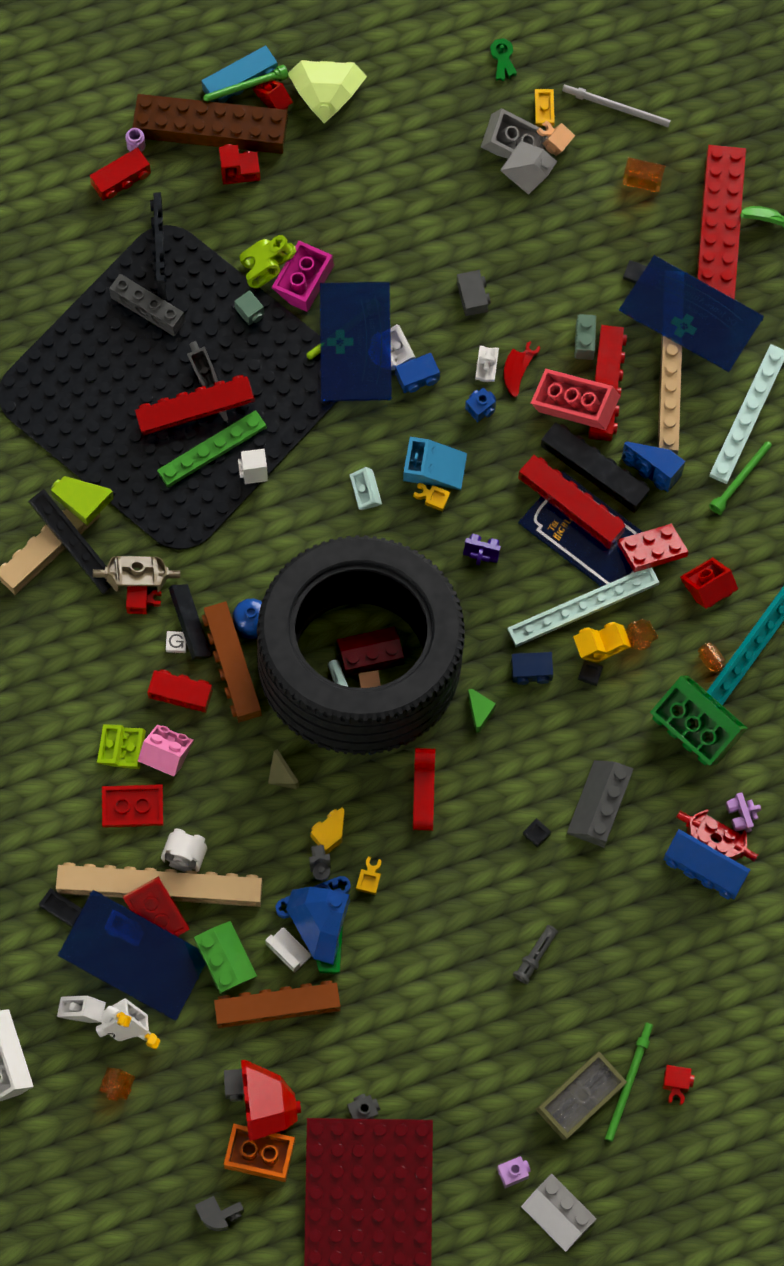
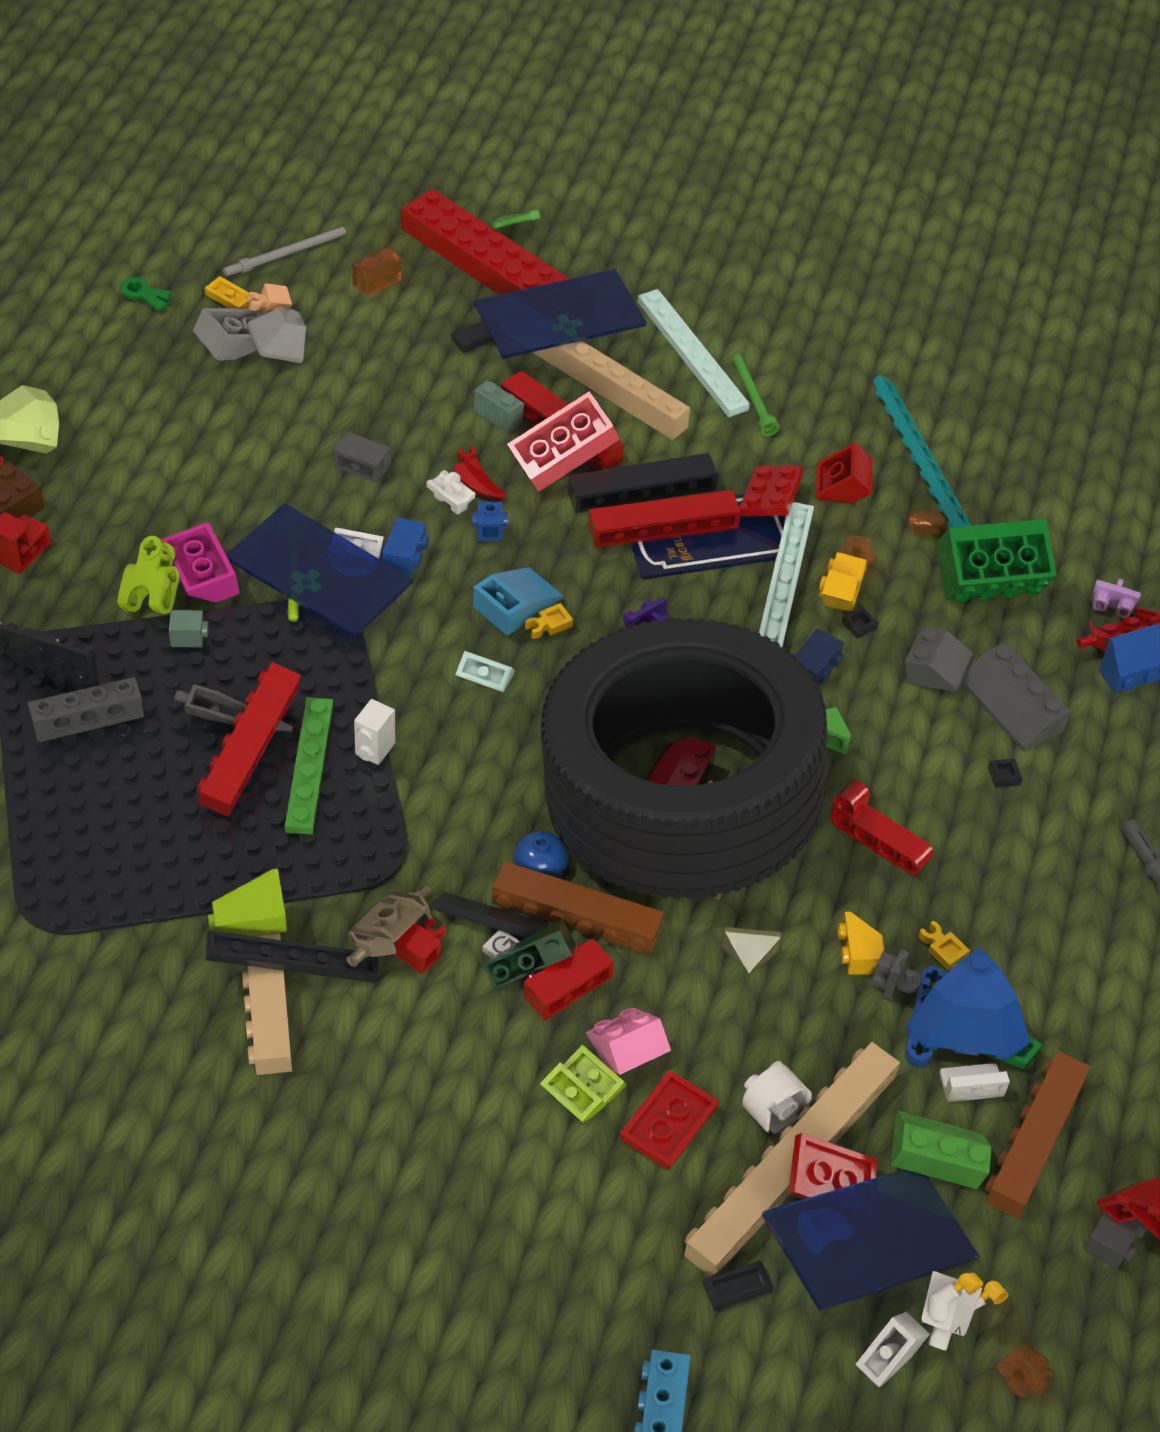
camera: 55 degrees left, 20 degrees down
(177, 661) = (530, 954): none -> dark green slope
(589, 738) = (937, 660): none -> dark grey slope
(655, 463) = (685, 433): blue slope -> none

